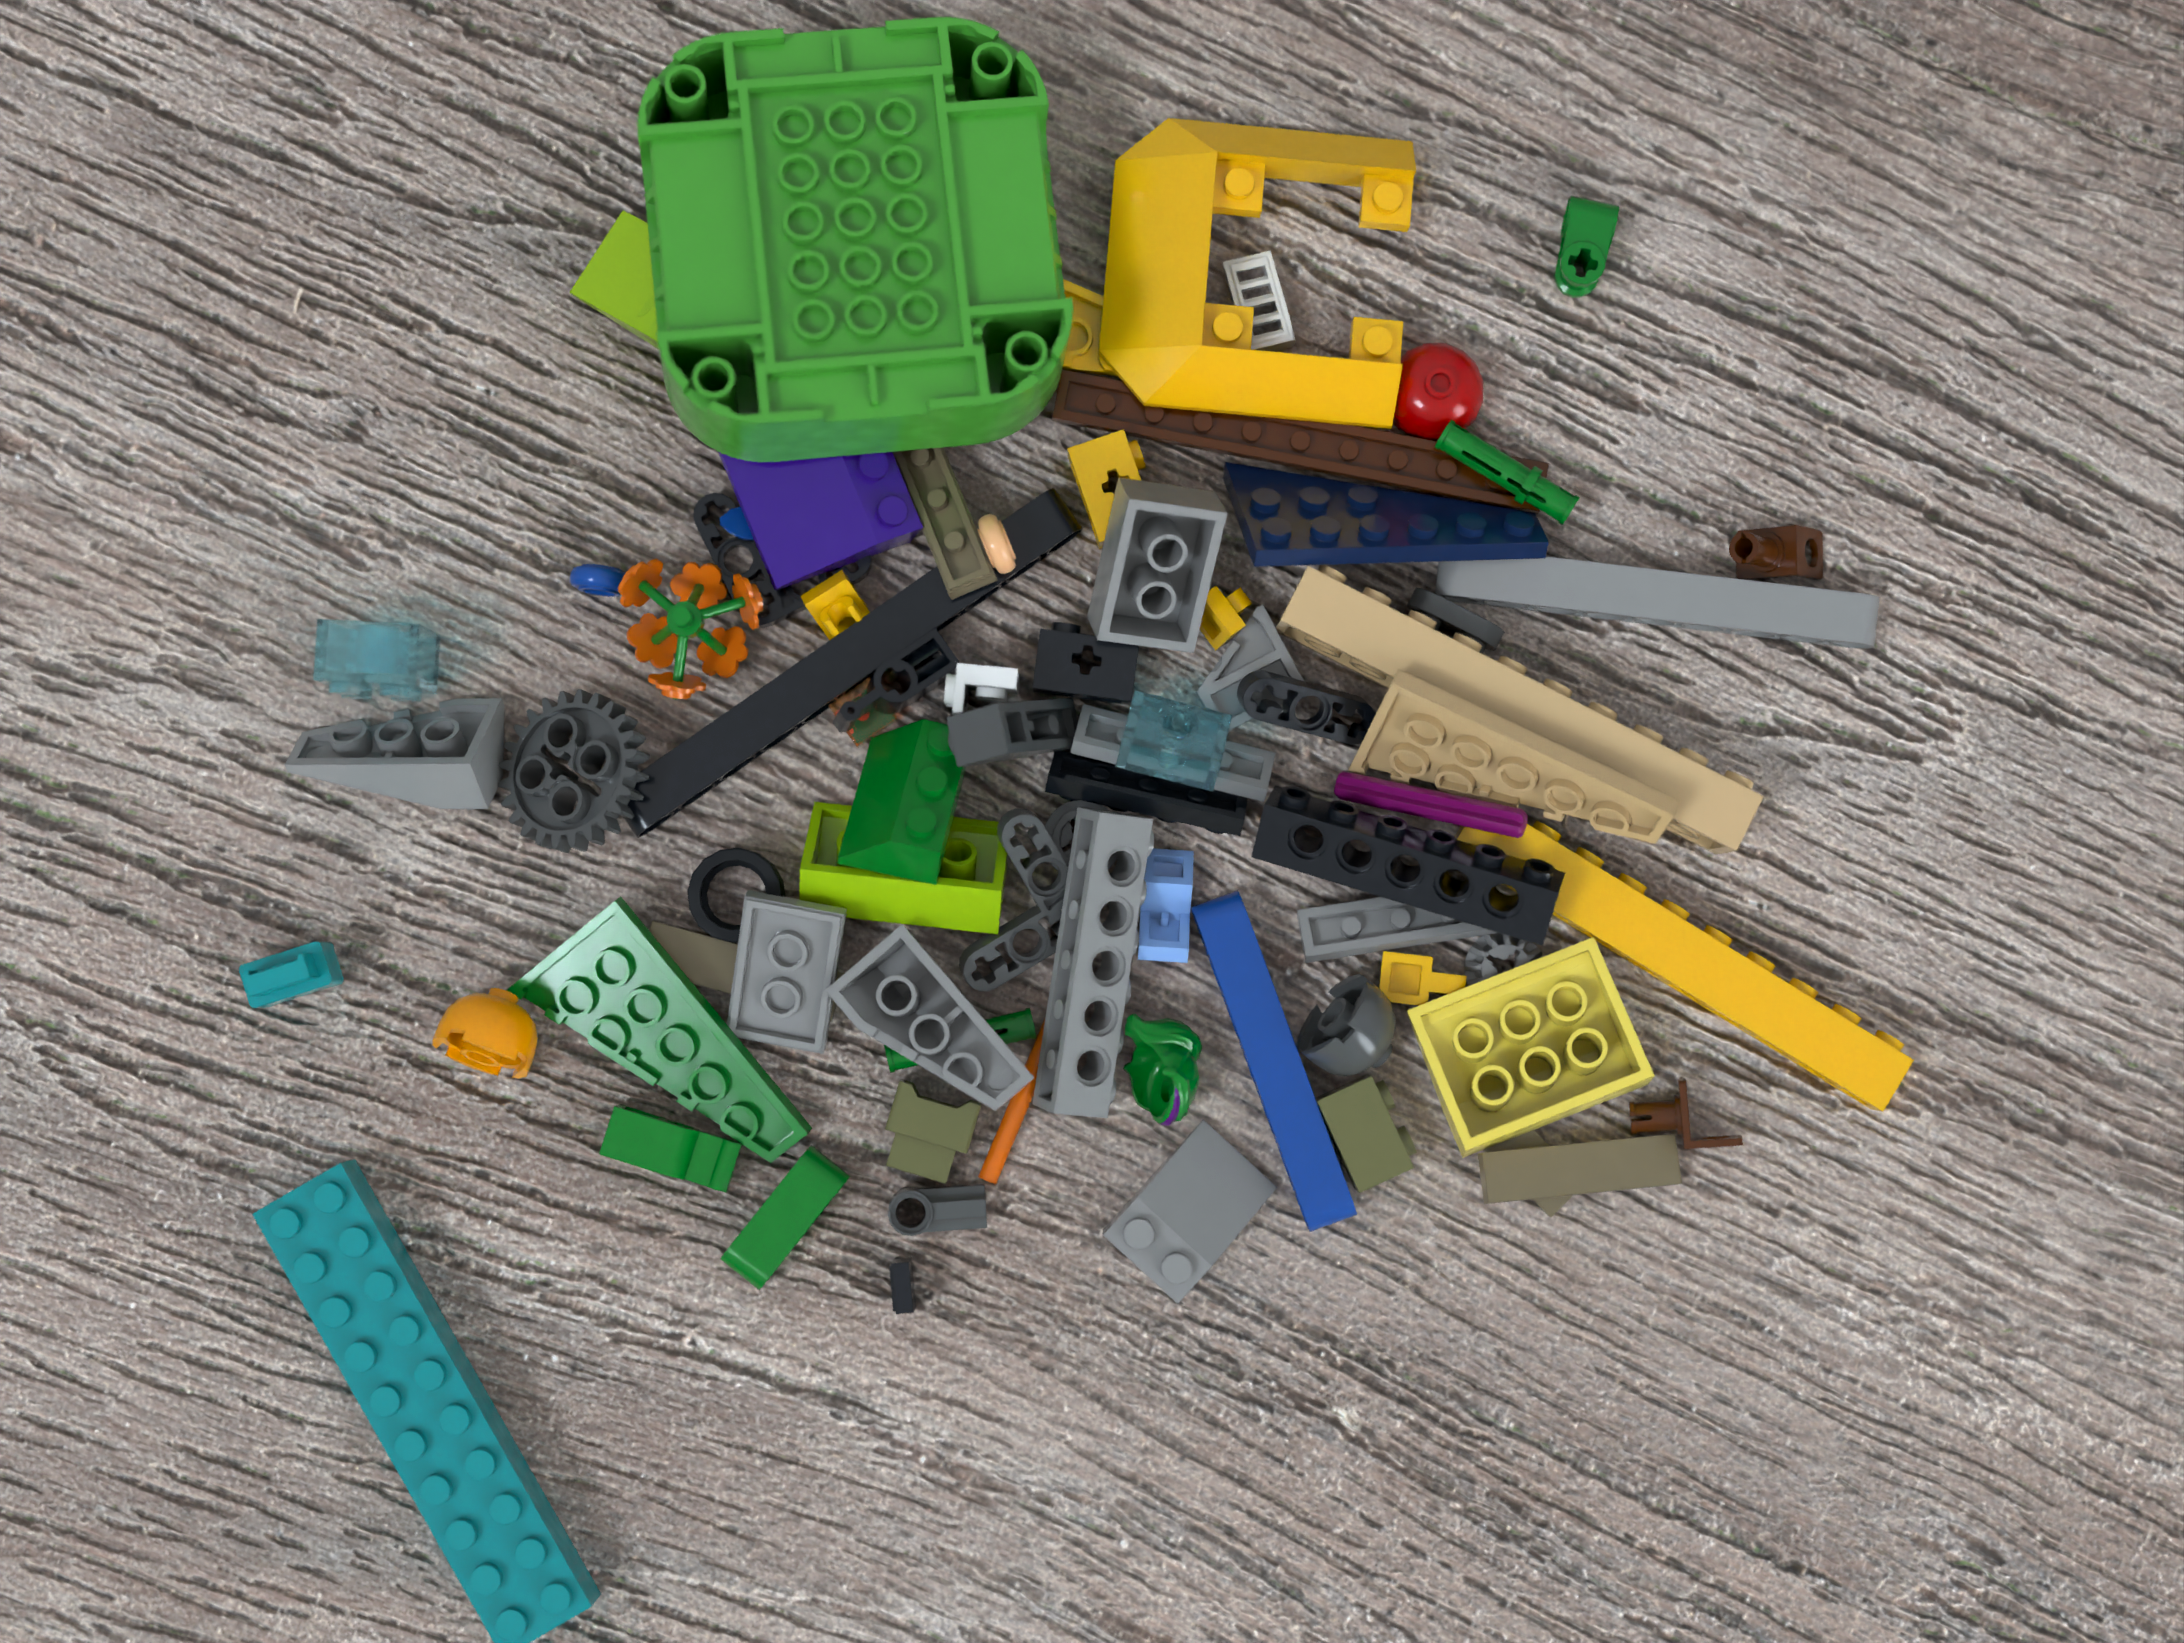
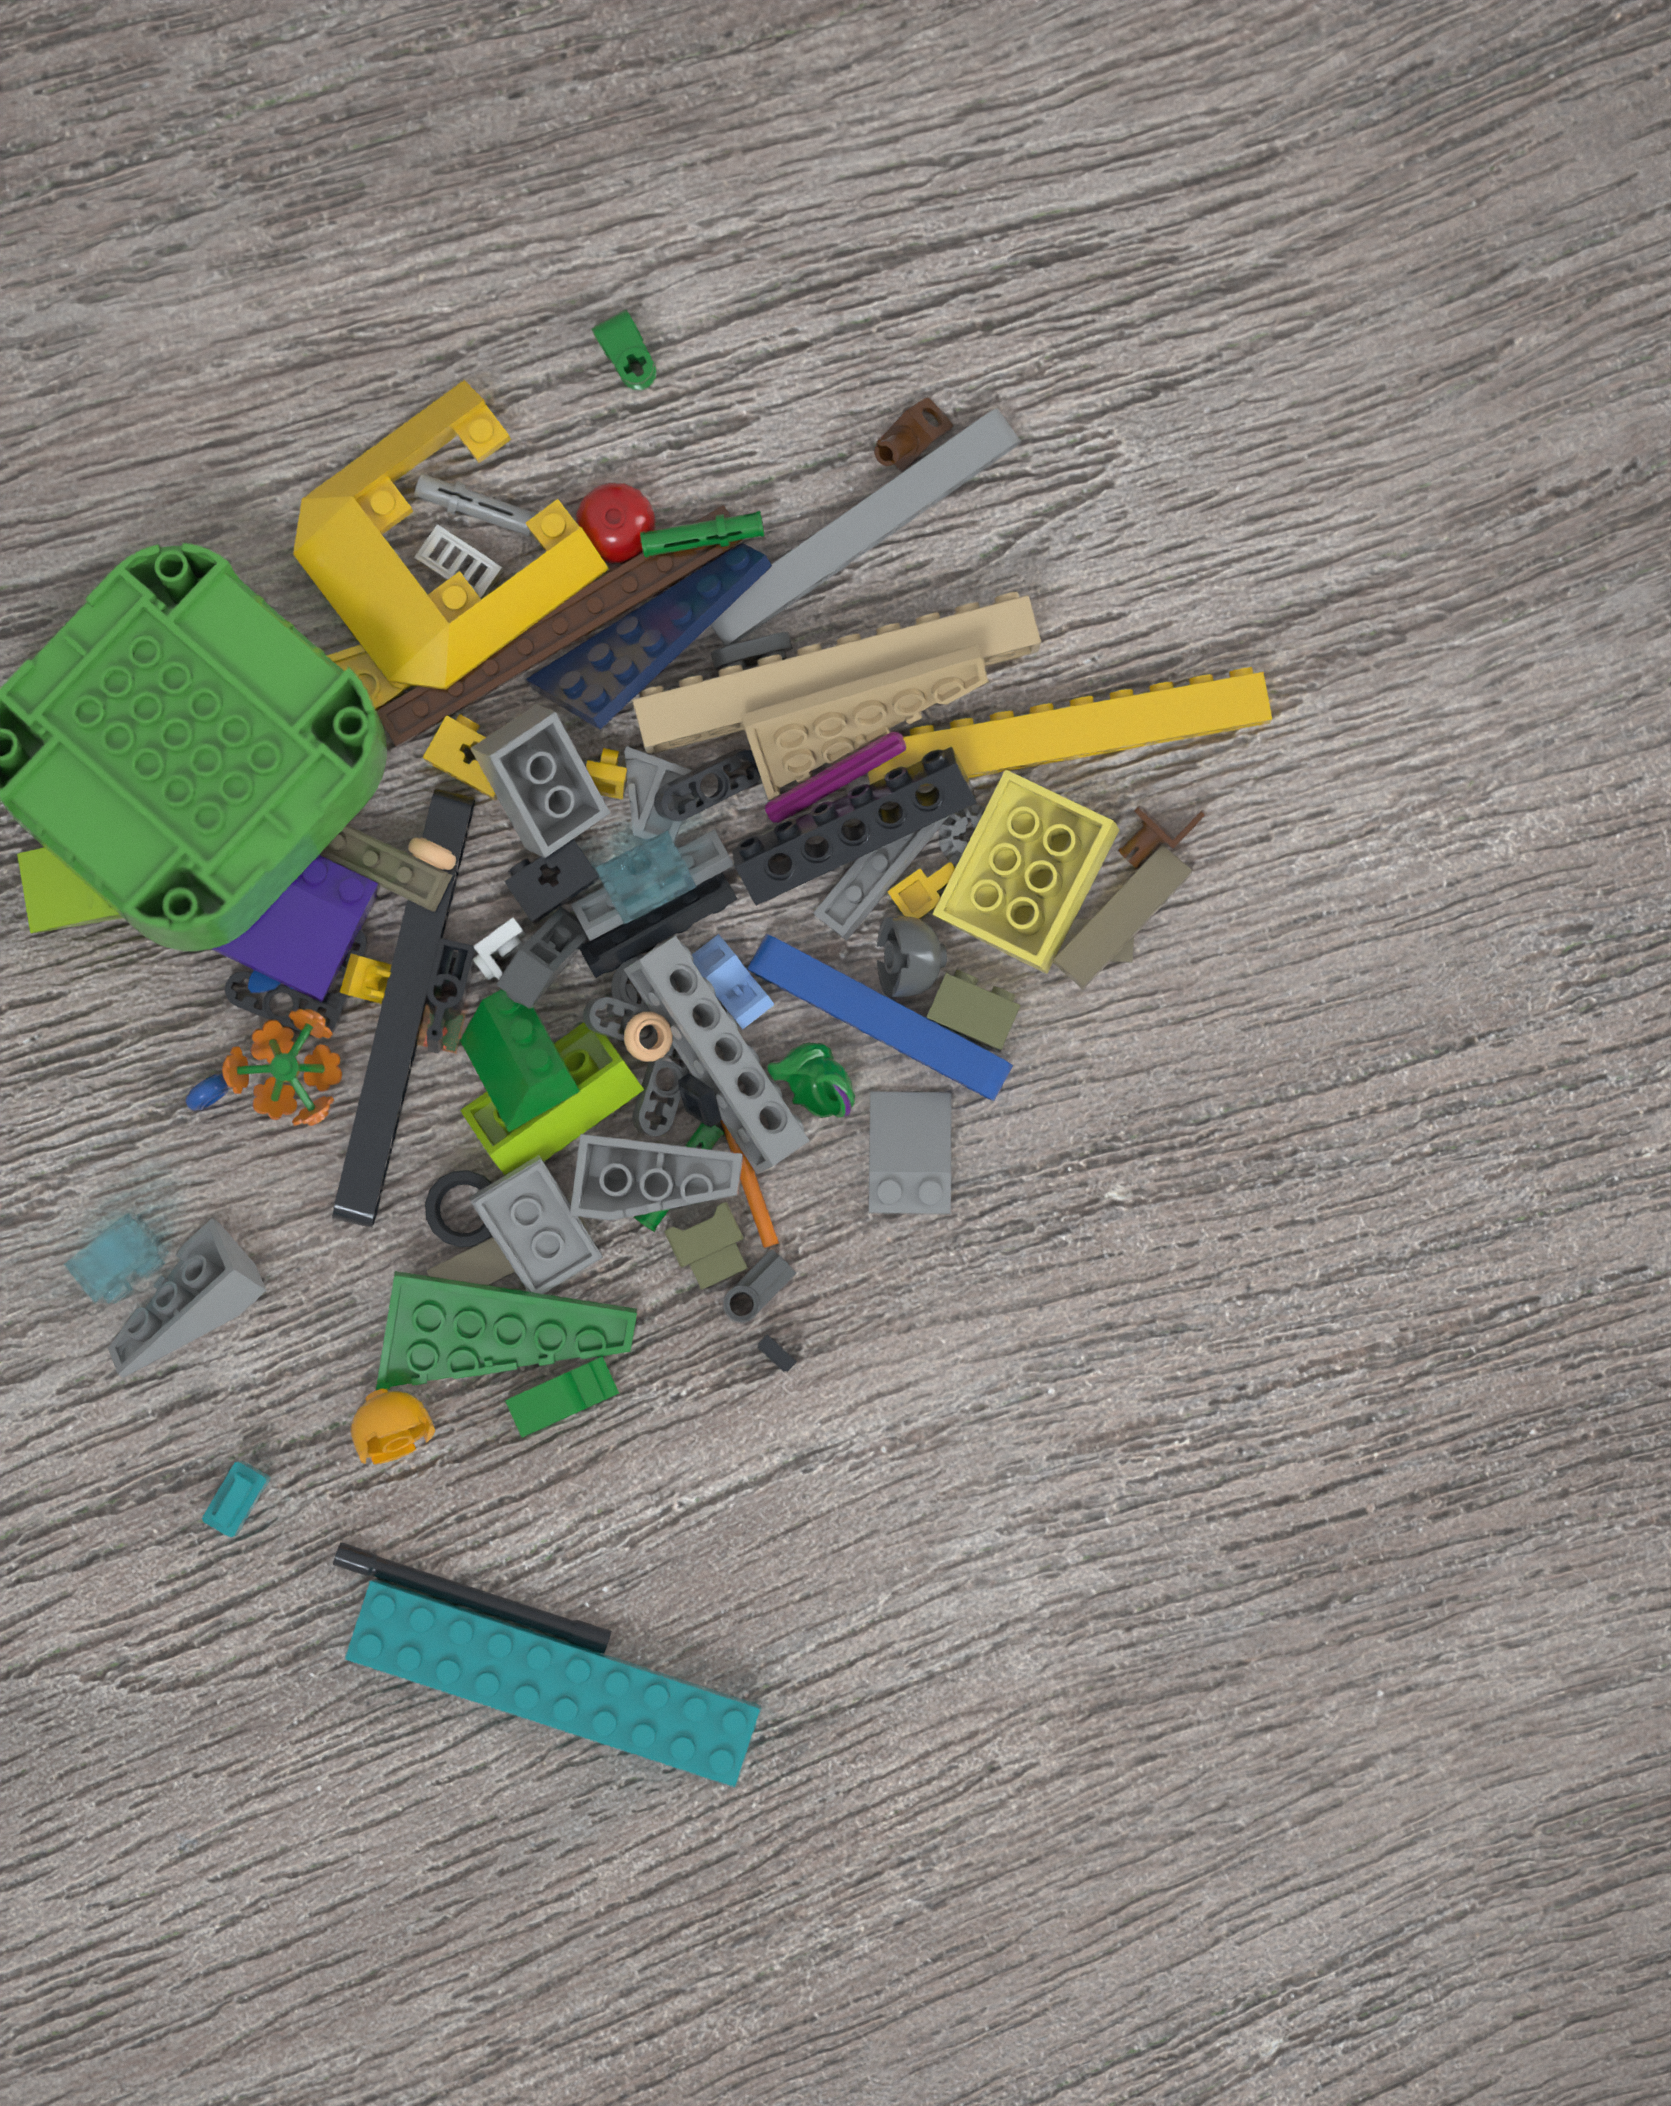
camera: 35 degrees left, 0 degrees up
(361, 1145) = (370, 1564): none -> black piece
(547, 808) = (292, 1183): dark grey gear -> none
(785, 1217) = (668, 1376): green beam -> none
(1028, 878) = (664, 1036): none -> light nougat piece
(1039, 989) = (699, 1100): none -> black tile
(1311, 245) = (473, 504): none -> light grey pin

